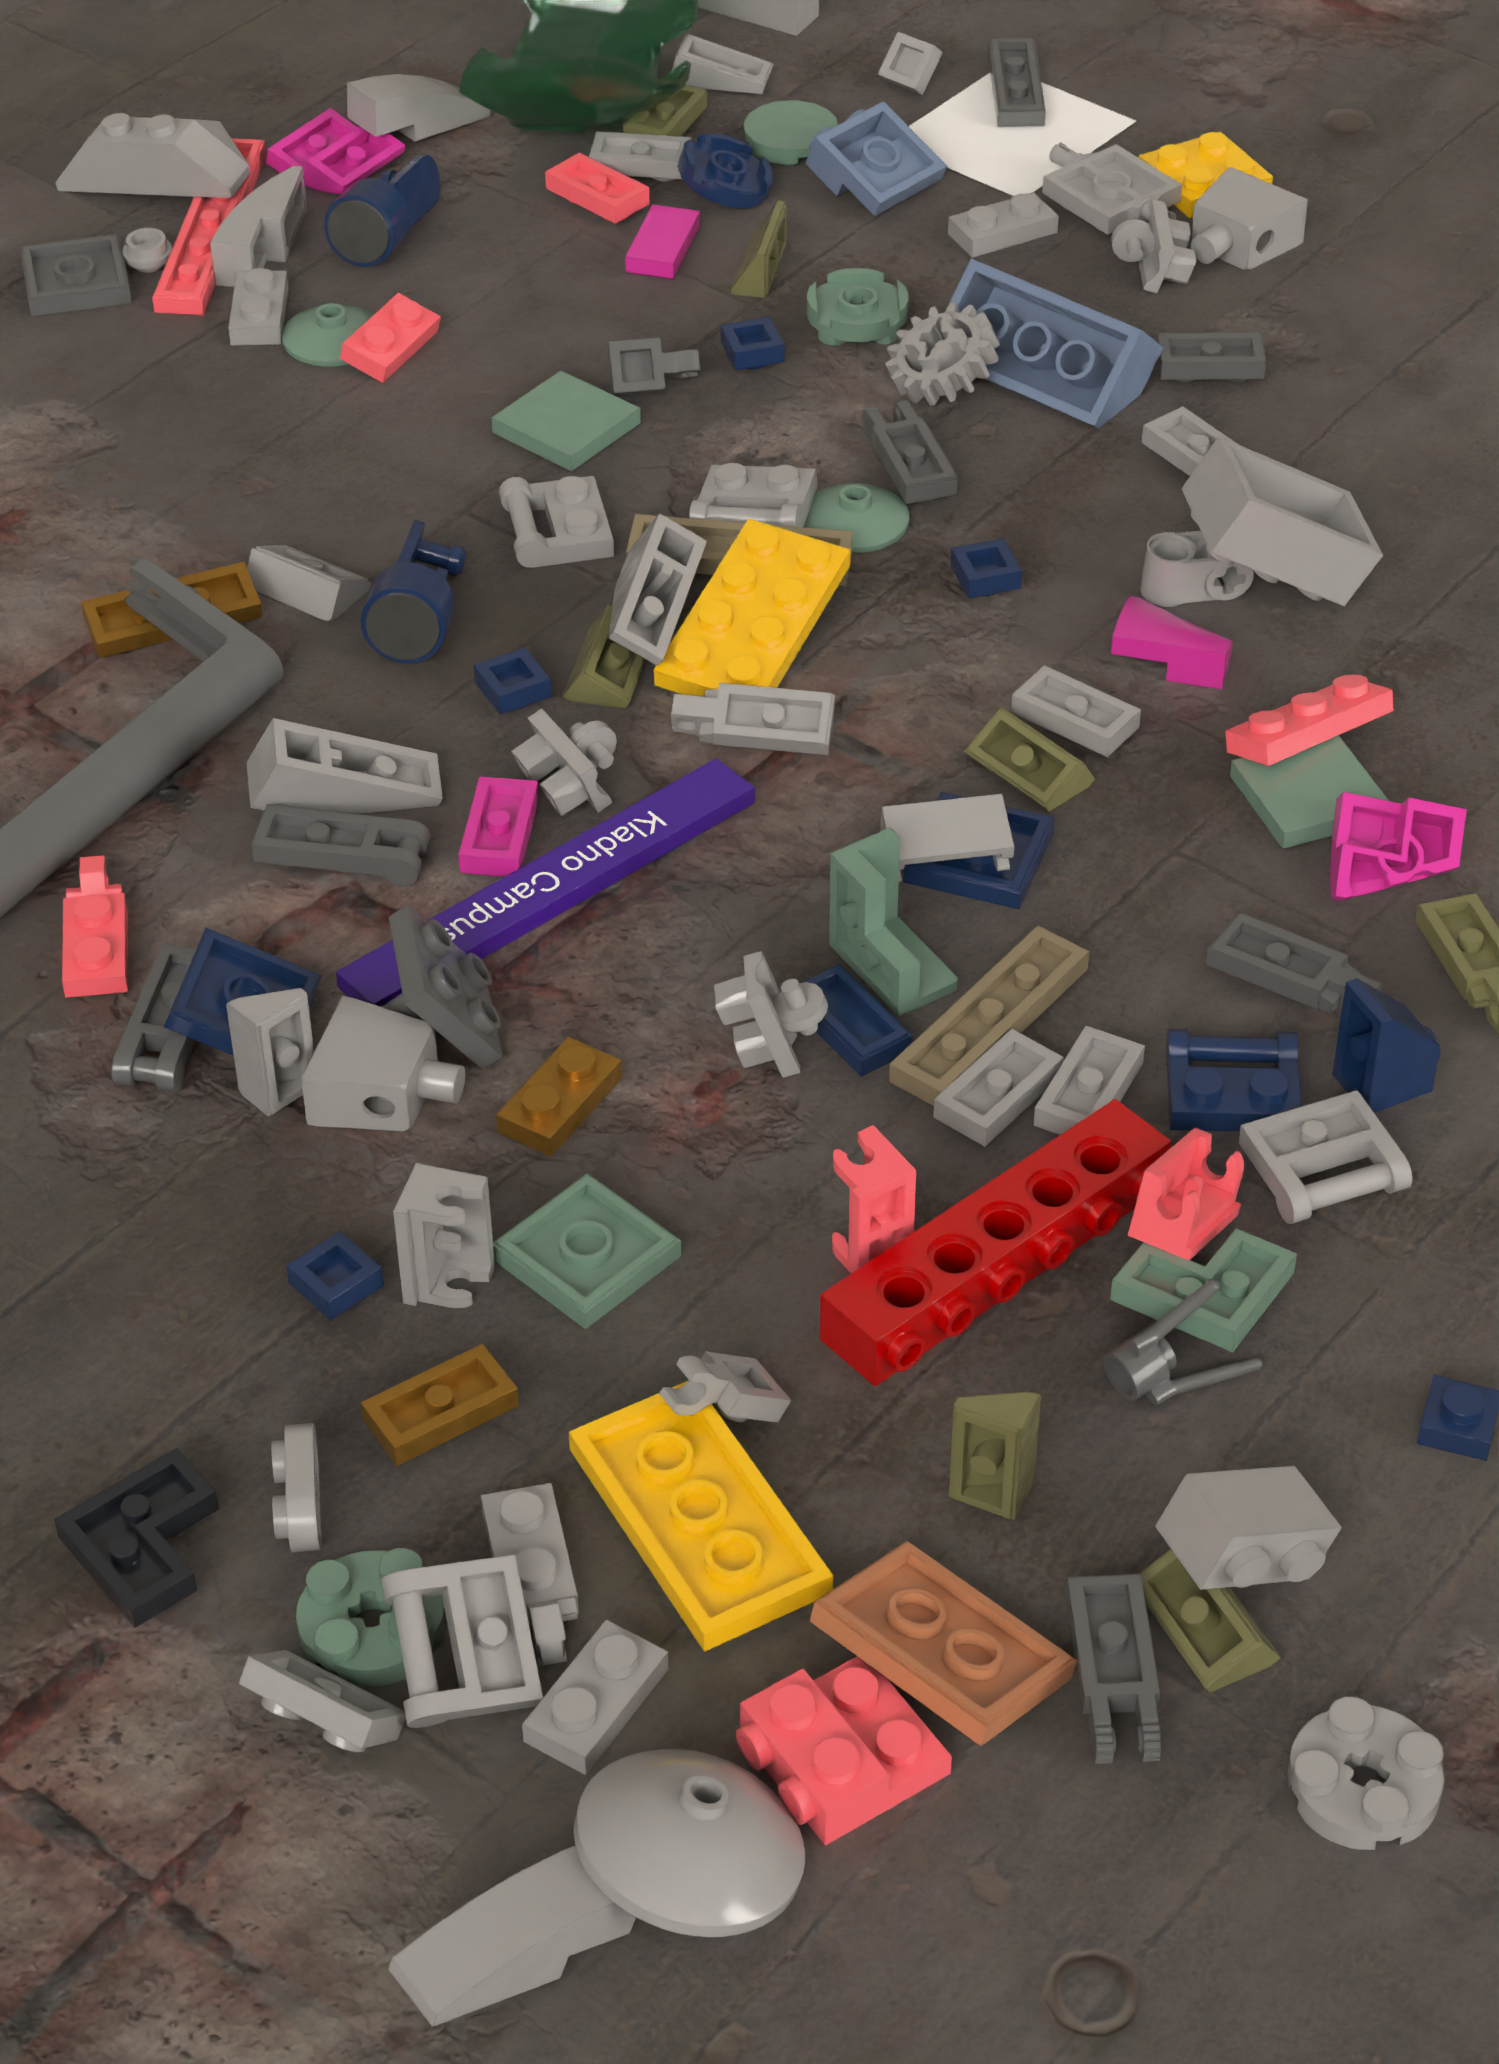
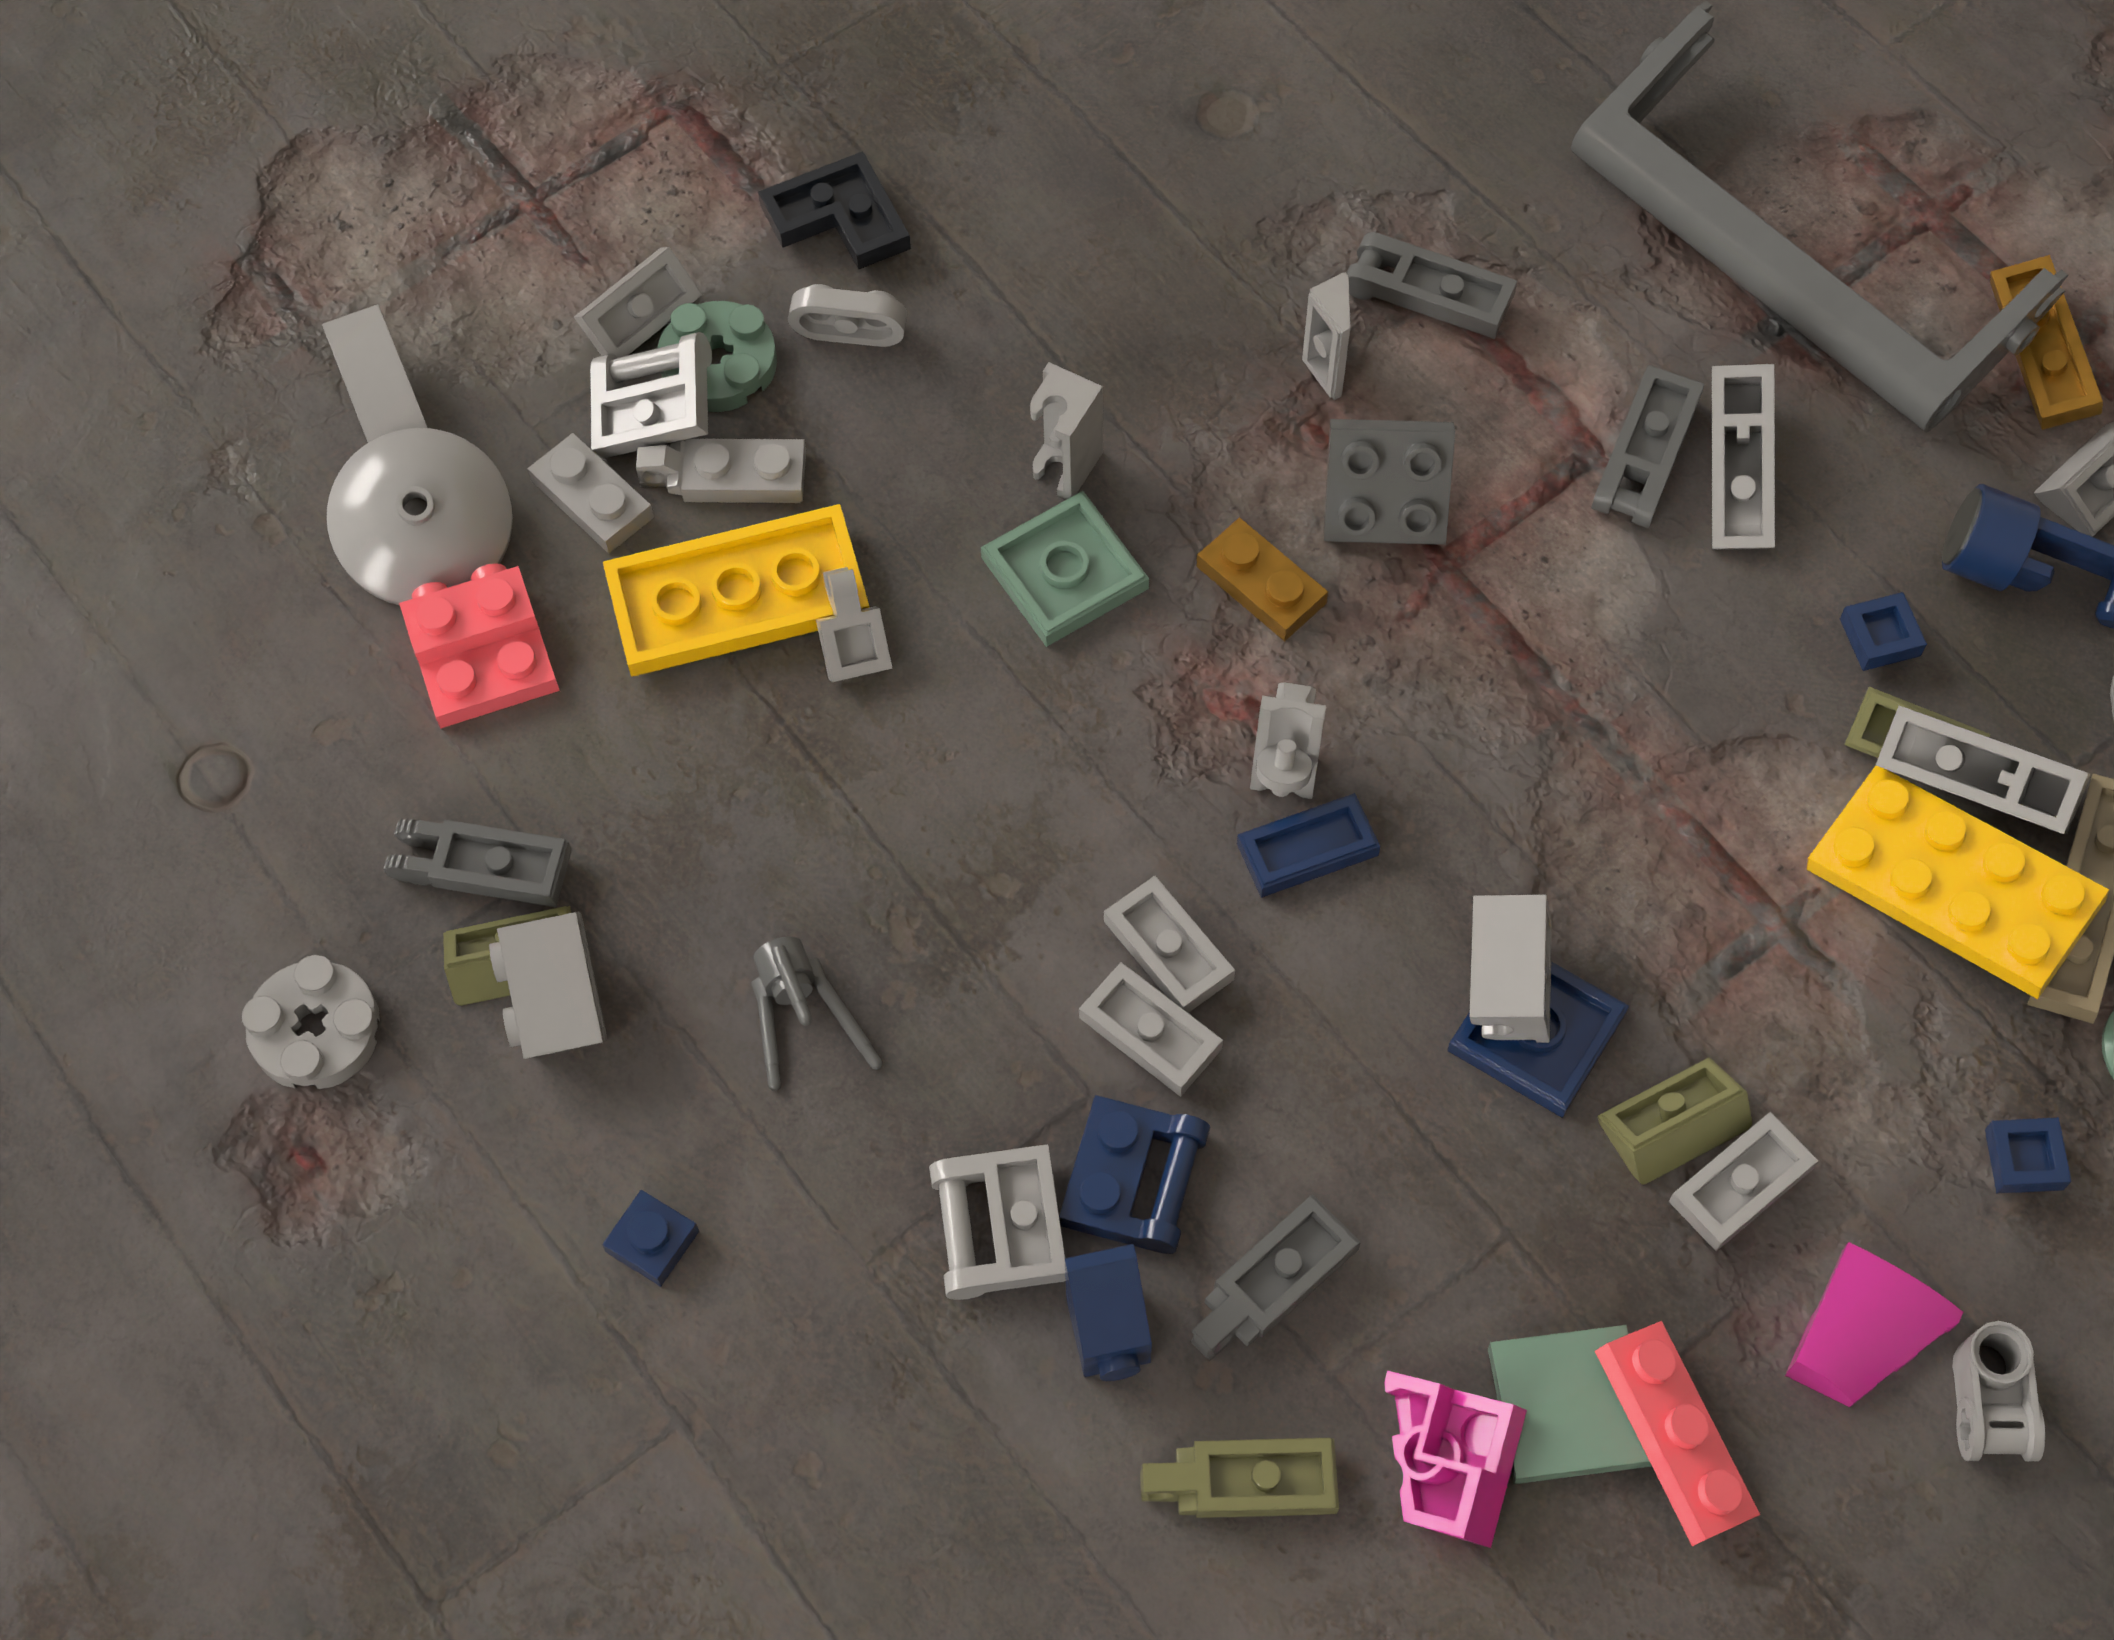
camera: 105 degrees right, 20 degrees up
(94, 934) = (1566, 244): coral hinge -> none
(227, 971) = (1429, 337): dark blue tile -> none
(335, 1275) = (1080, 356): dark blue plate -> none
(376, 1070) = (1298, 423): light grey torso -> none
(439, 1404) = (909, 425): pearl gold plate -> none
(498, 826) = (1646, 582): dark pink plate -> none
(568, 874) = (1575, 641): dark purple tile -> none
(576, 759) = (1732, 659): light grey hips -> none
(758, 718) = (1776, 852): light grey hinge -> none
(870, 933) = (1400, 891): sand green panel -> none
(878, 1200) = (1003, 778): coral hinge -> none
(943, 1642) = (544, 736): nougat tile -> none
(989, 1244) = (901, 753): red brick -> none
(994, 1450) = (689, 800): olive slope -> none
(1002, 1000) = (1274, 967): dark tan plate -> none
(1183, 1201) = (952, 1056): coral hinge -> none
(1248, 1279) = (834, 1052): sand green plate -> none
(1280, 522) = (2013, 1484): light grey piece -> none

